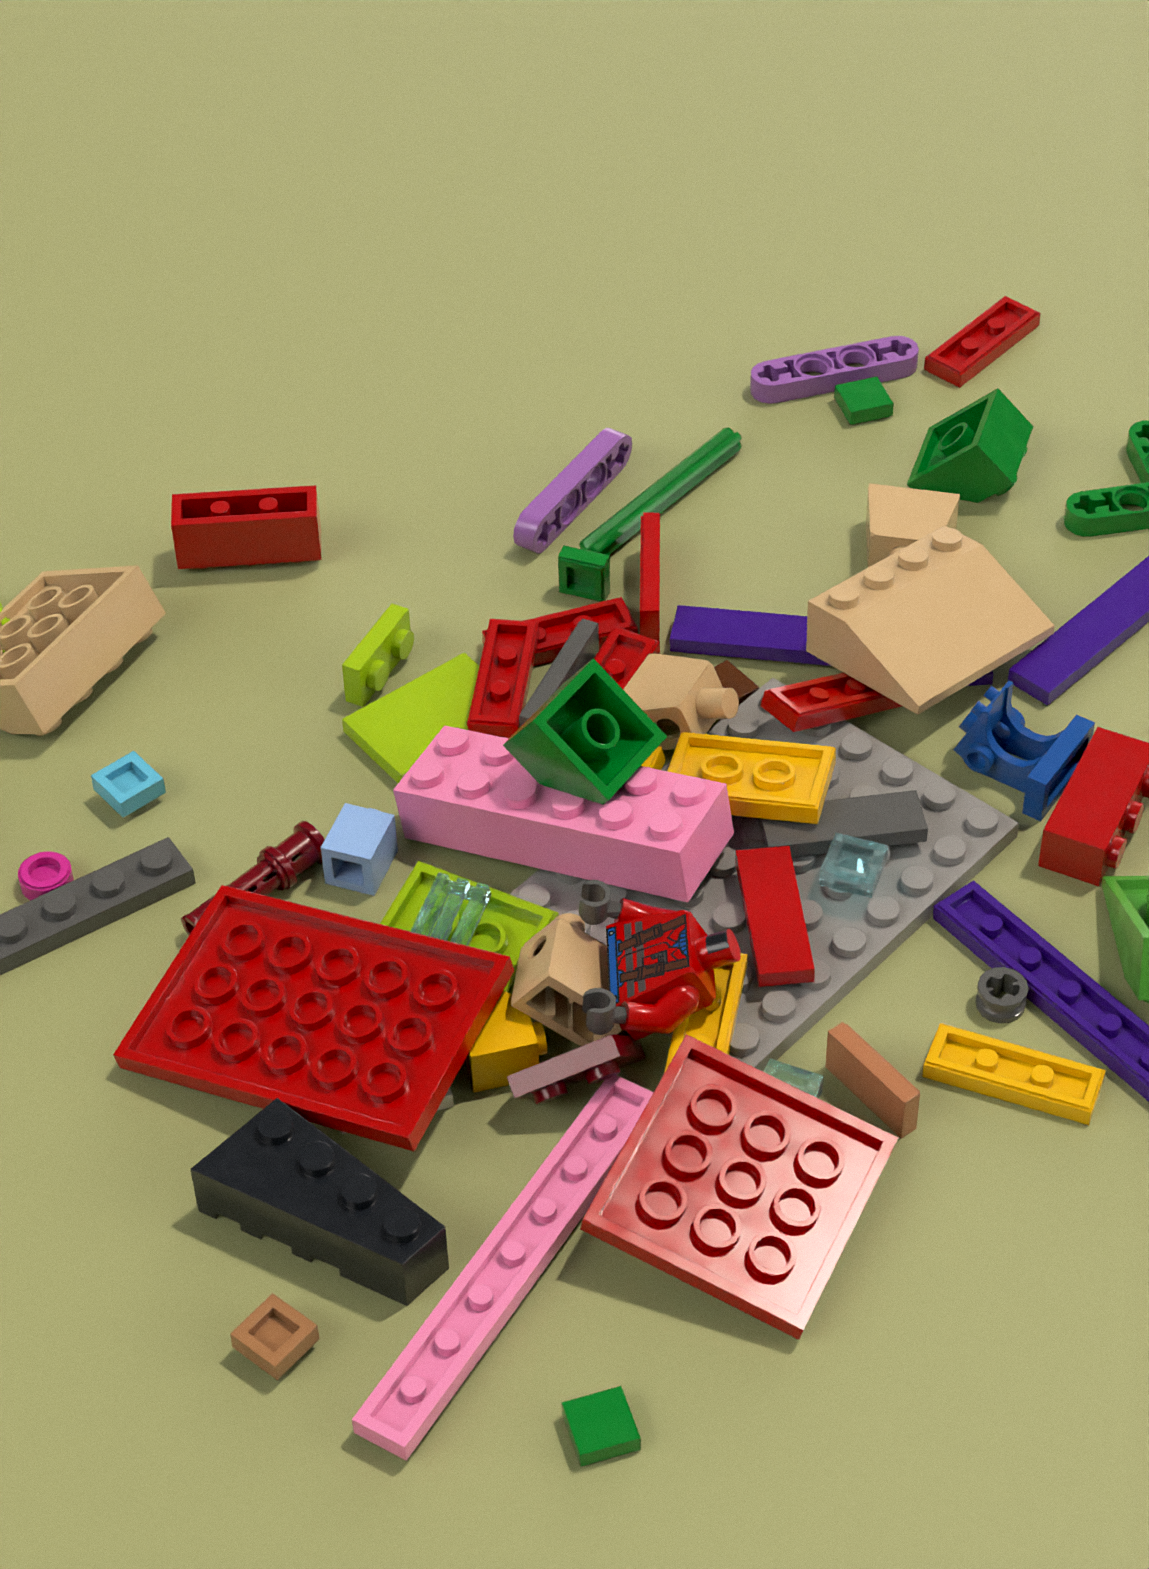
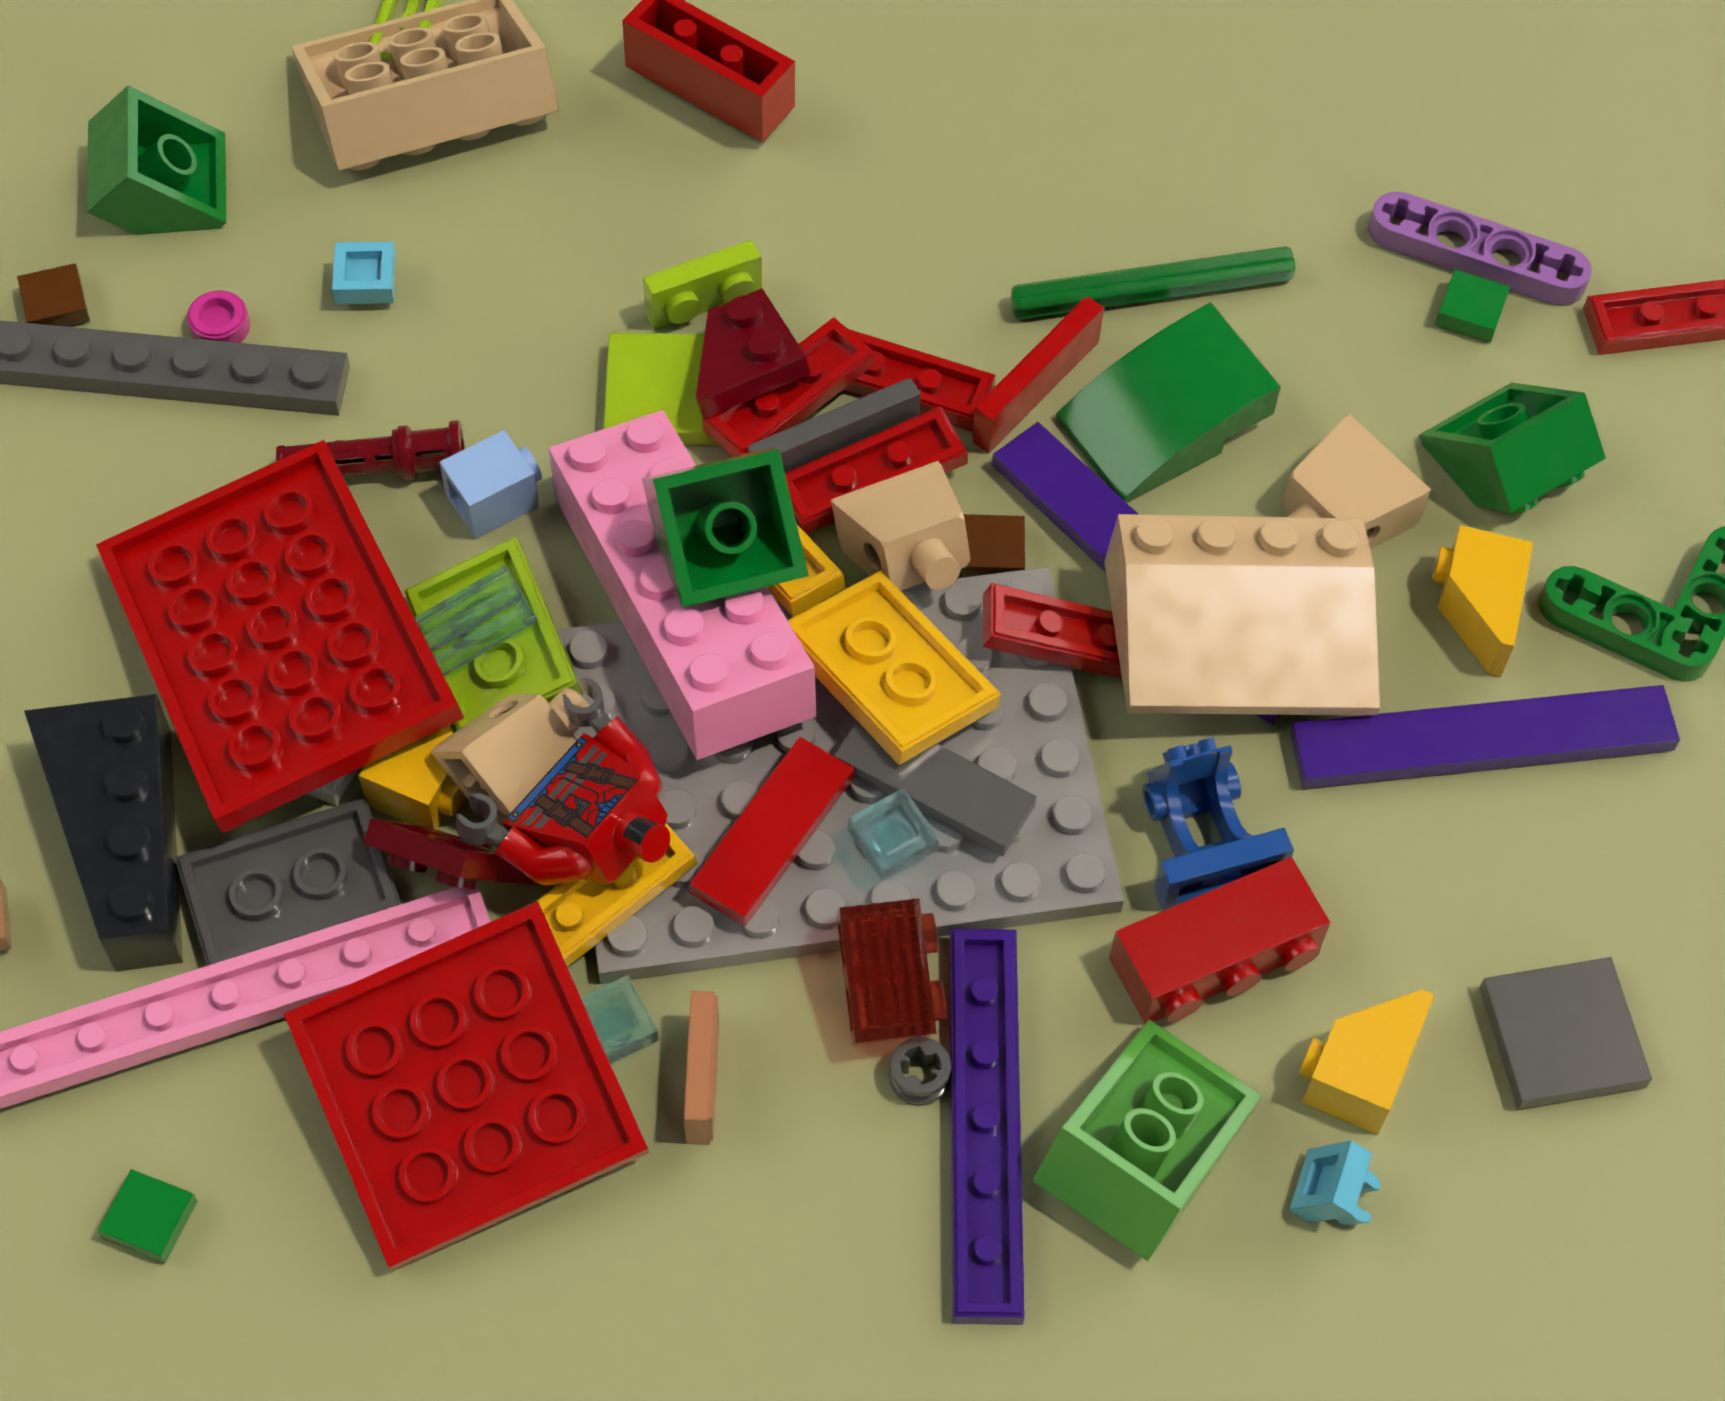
camera: 35 degrees right, 15 degrees up
(459, 666) = (746, 354): none -> dark red wing
(479, 1164) = (285, 881): none -> dark grey tile
(572, 490) = (1009, 236): medium lavender beam -> none
(584, 573) = (979, 325): green tile -> none
(749, 544) = (1169, 404): none -> green slope
(930, 945) = (888, 971): none -> clear red brick
(1014, 1073) = (850, 1161): yellow tile -> none
(1043, 536) = (1484, 591): none -> yellow slope

